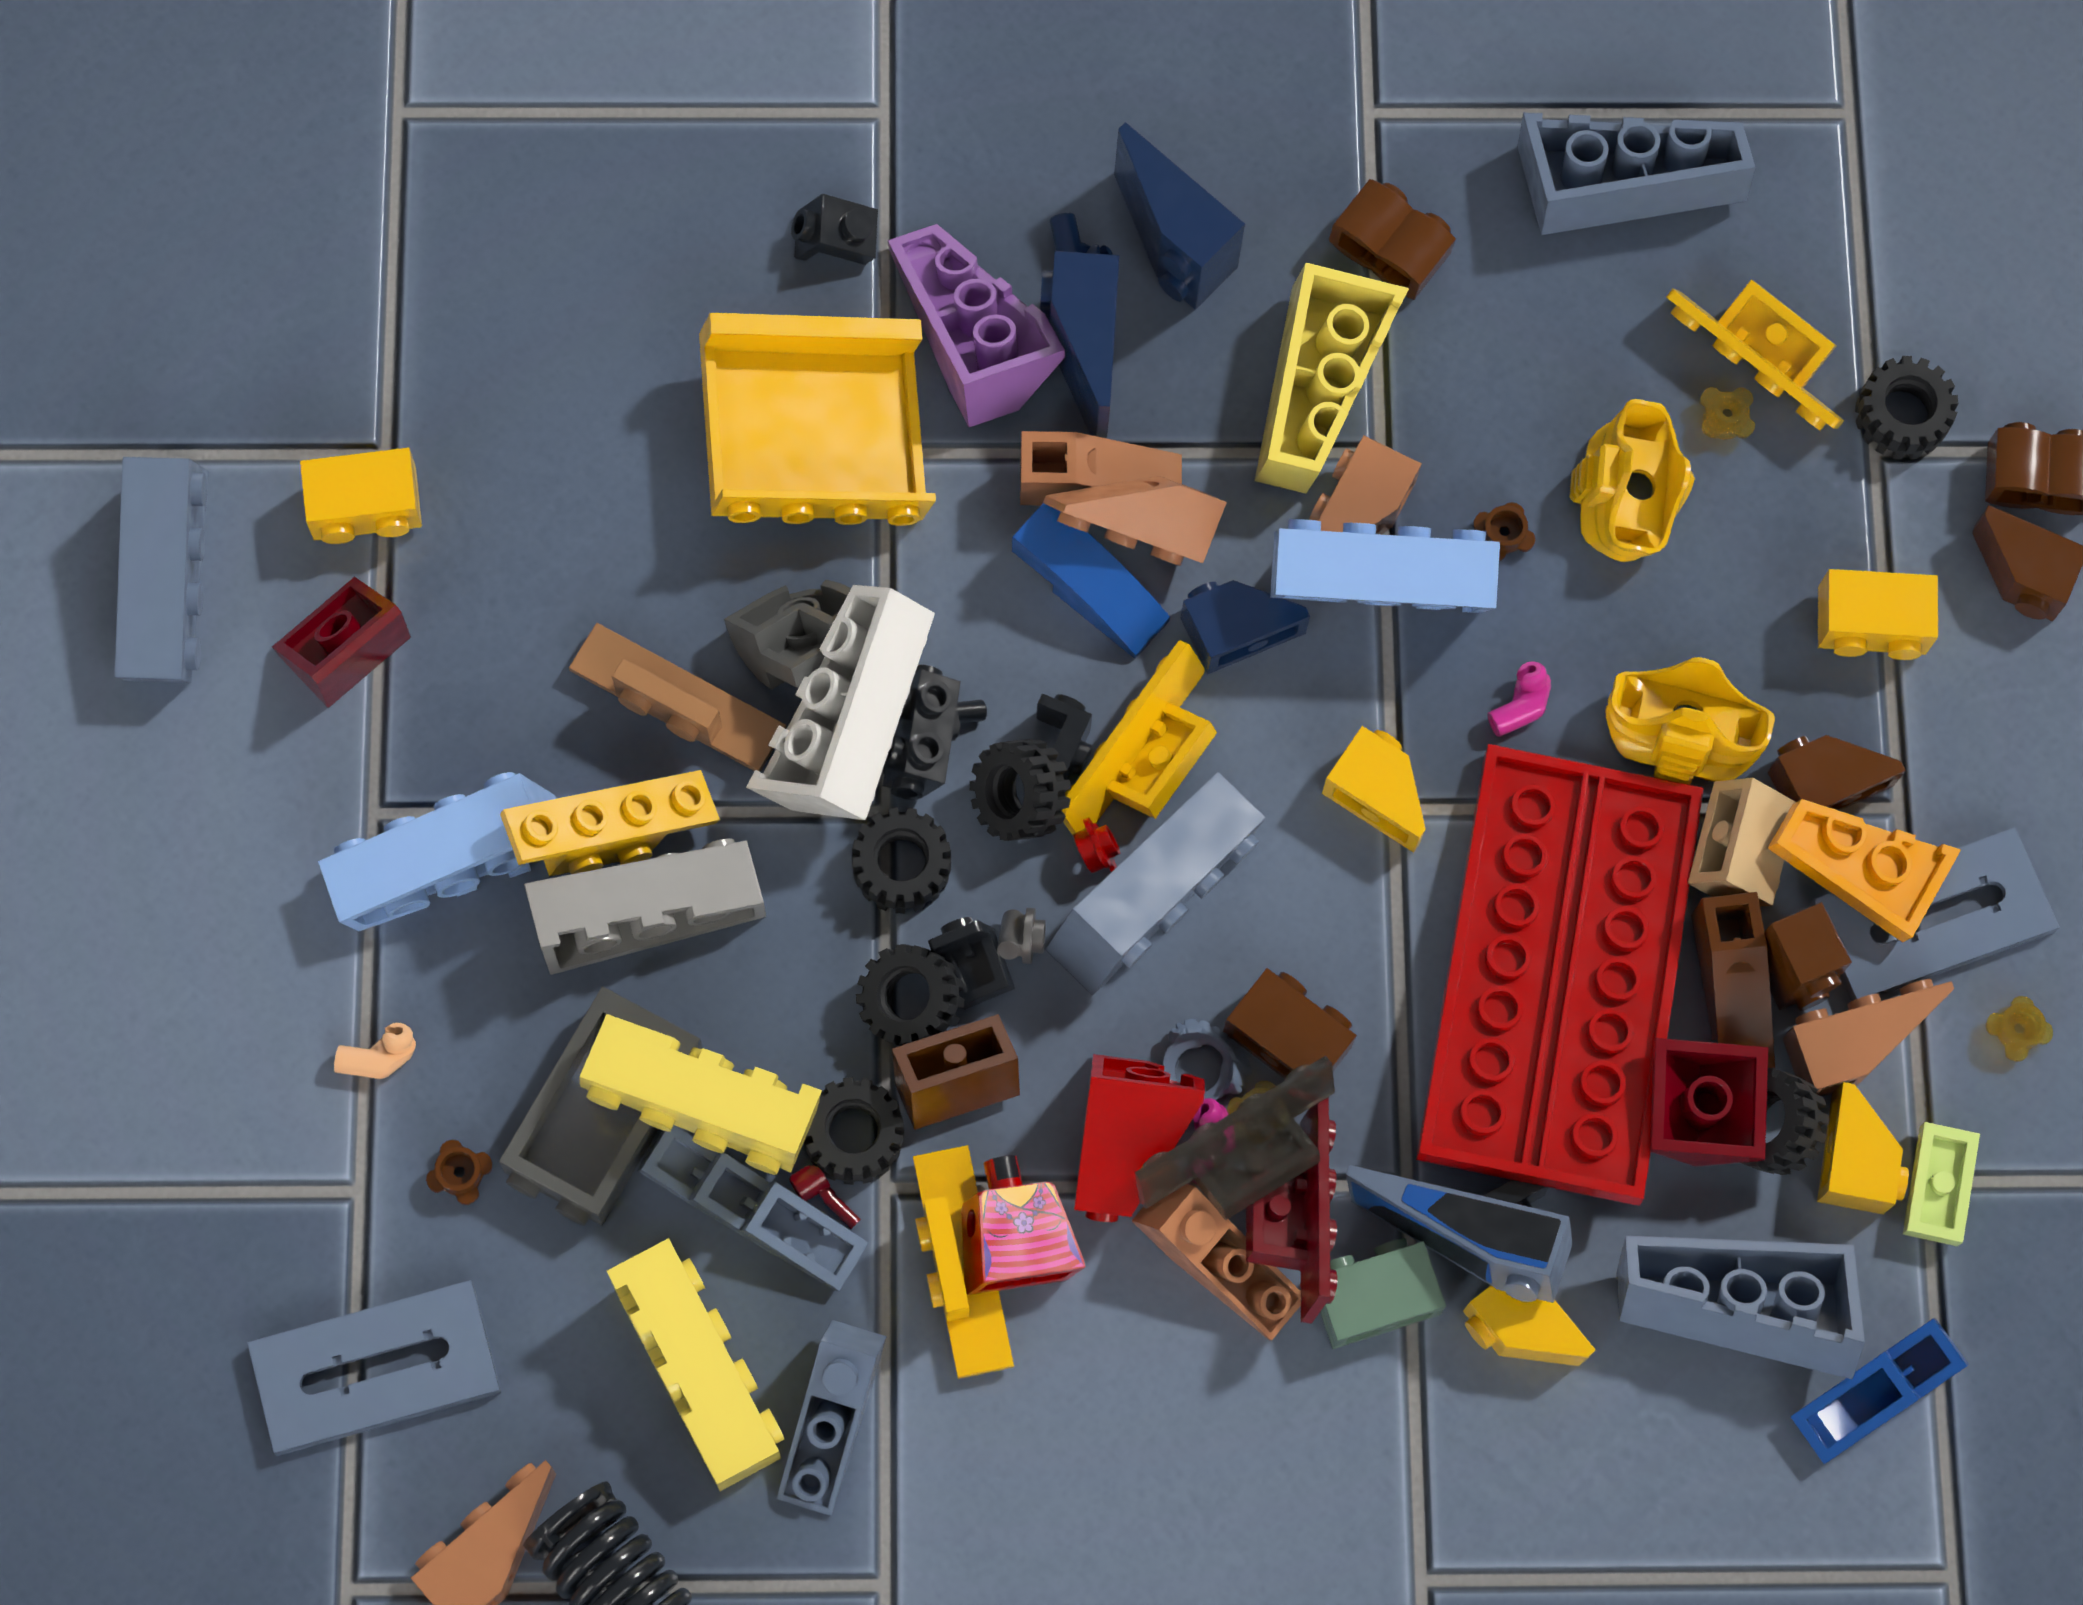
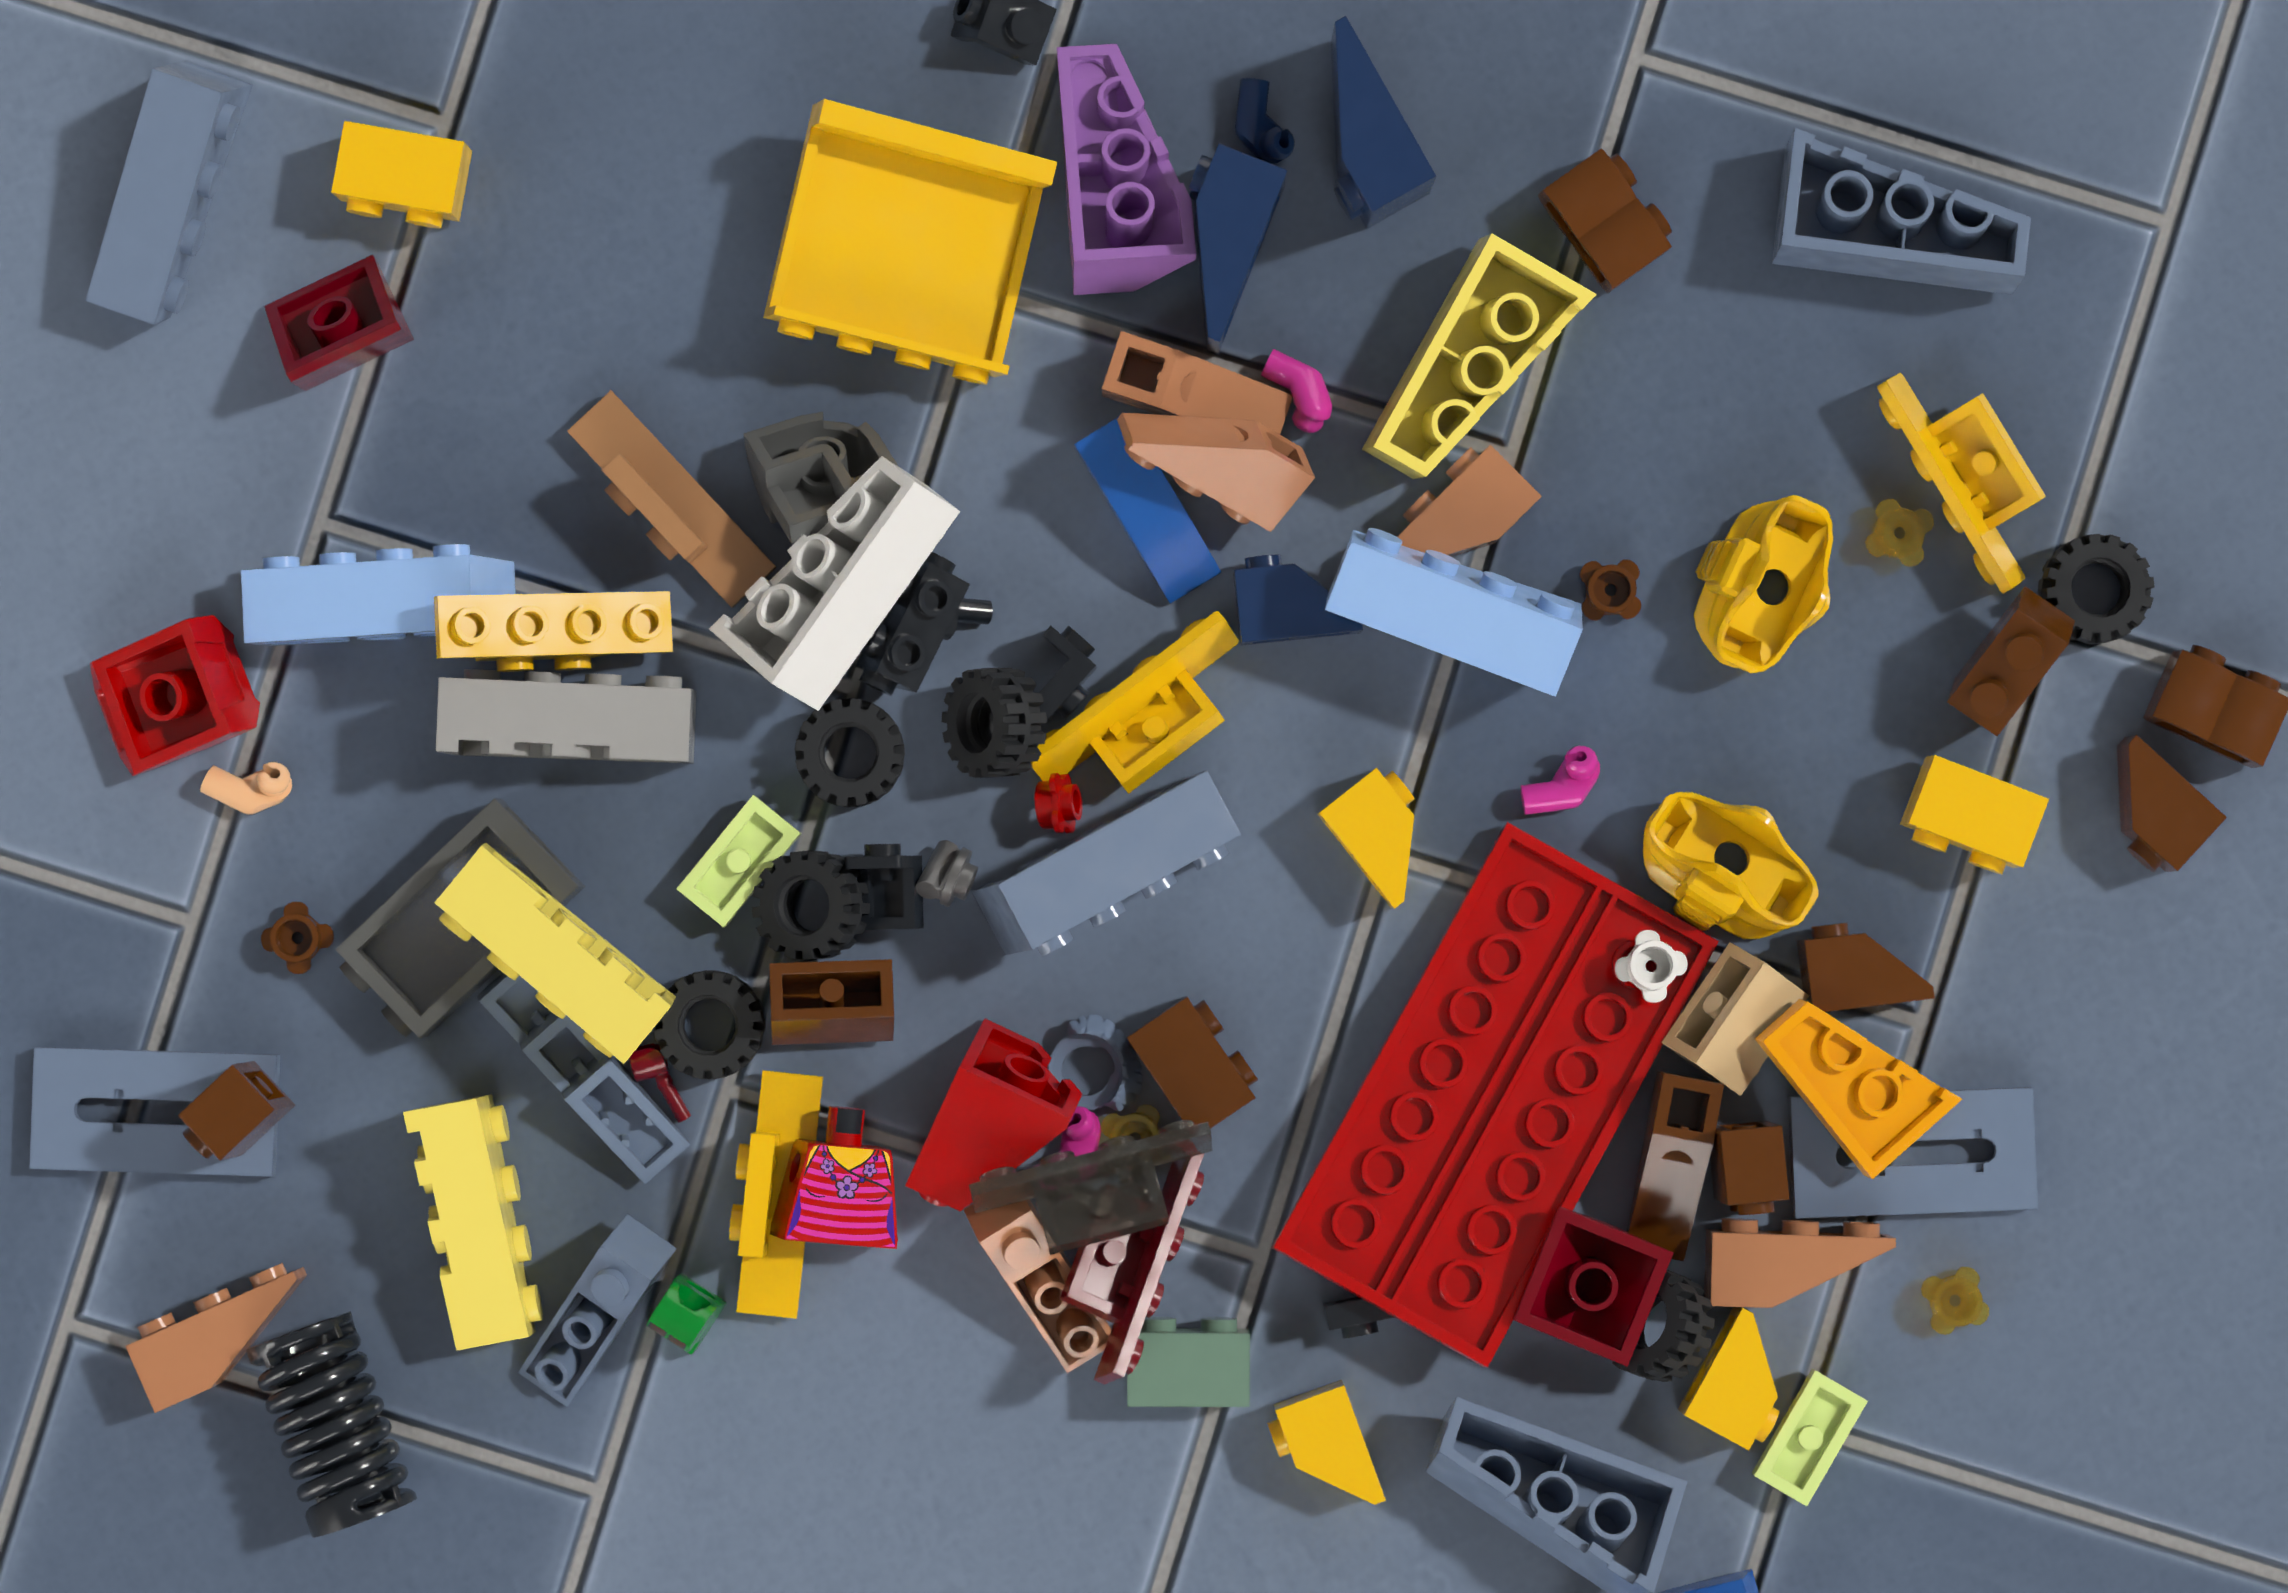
camera: 25 degrees right, 15 degrees up
(284, 991) = (174, 693): none -> red slope
(451, 1327) = (234, 1112): none -> reddish brown brick
(831, 981) = (737, 858): none -> yellowish green plate
(913, 1392) = (686, 1313): none -> green leg
(1190, 445) = (1306, 388): none -> dark pink arm
(1493, 1239) = (1323, 1364): slope -> none
(1662, 807) = (1668, 966): none -> white plate
(1861, 478) = (2011, 661): none -> reddish brown brick

